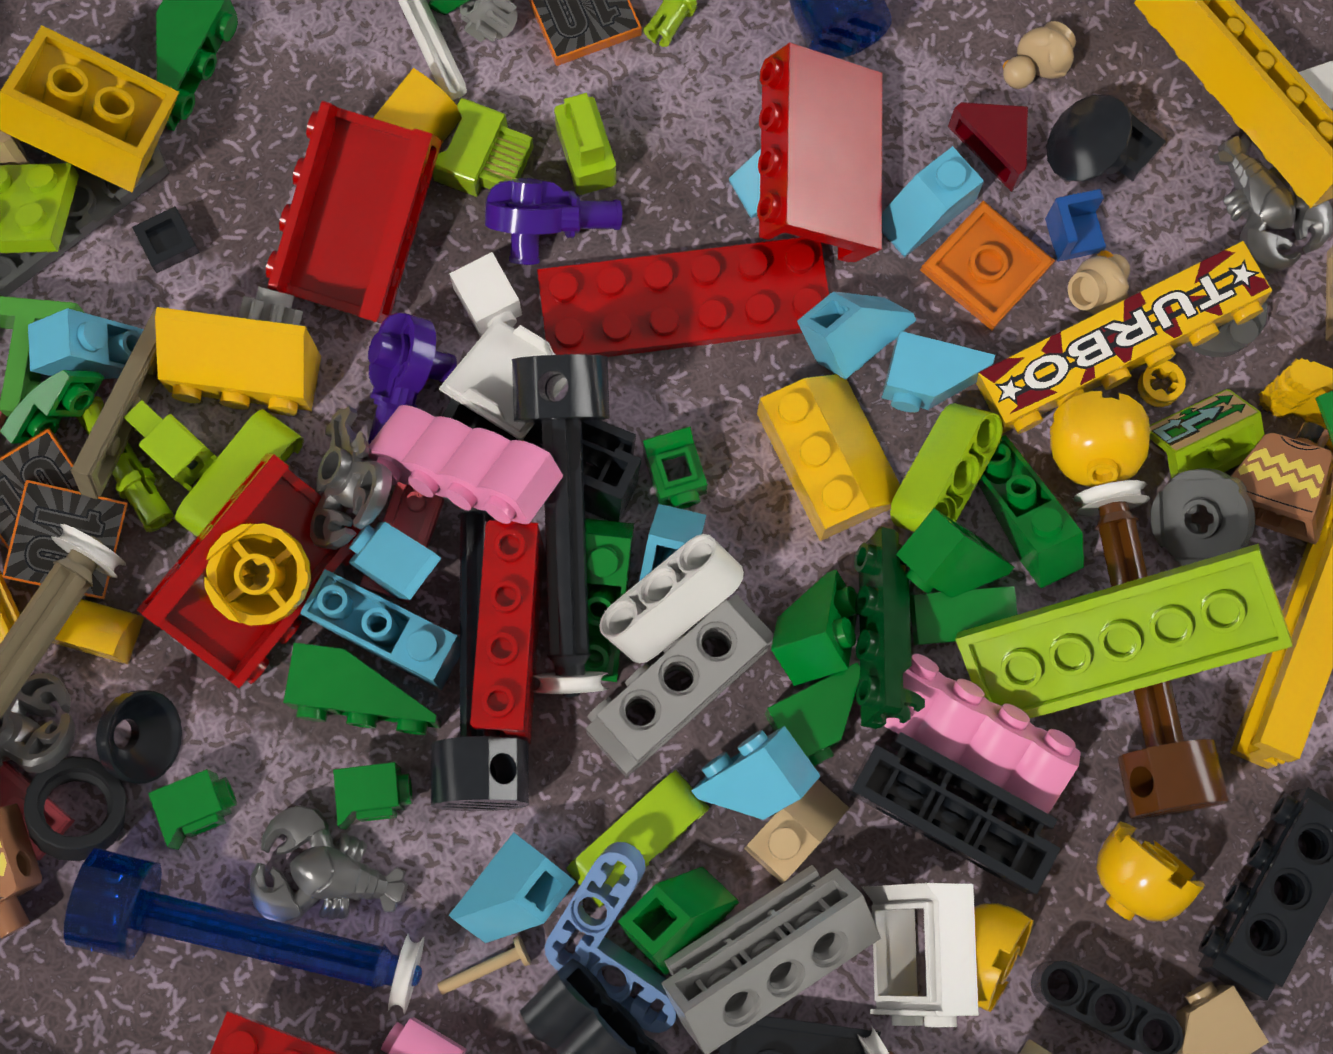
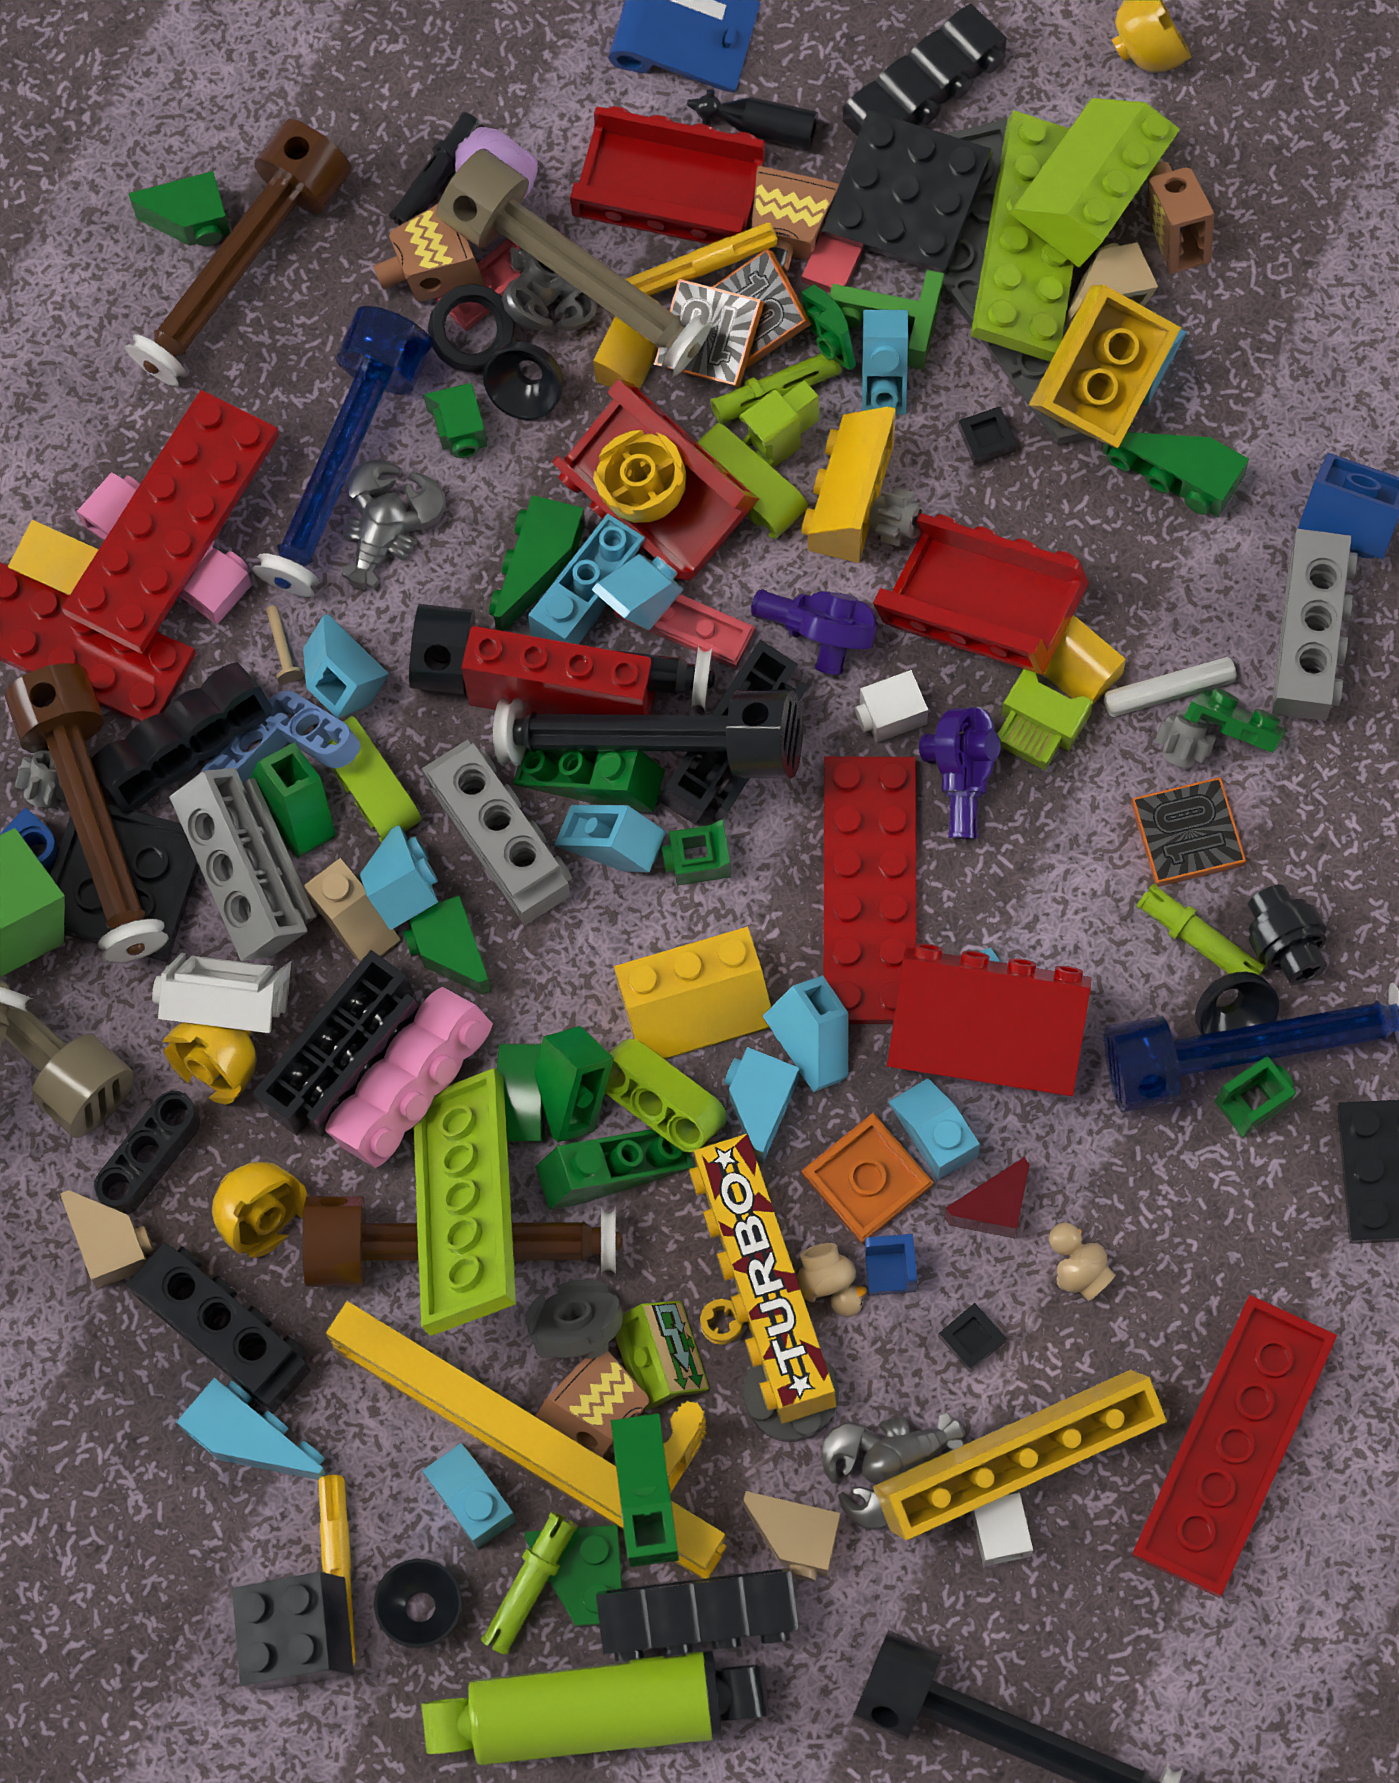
camera: 105 degrees right, 5 degrees down
(111, 429) = (792, 369): dark tan tile -> none
(348, 482) = (712, 564): flat silver animal -> none
(370, 793) = (444, 563): green window -> none
(466, 464) = (710, 649): bright pink brick -> none
(485, 375) = (822, 701): white piece -> none
(585, 144) = (1034, 812): lime piece -> none
(671, 598) = (567, 820): white beam -> none
(817, 631) = (525, 953): green slope -> none
(884, 632) = (497, 1000): dark green piece -> none
(1090, 138) = (980, 1291): black dish -> none
(1099, 438) = (659, 1231): yellow cylinder -> none

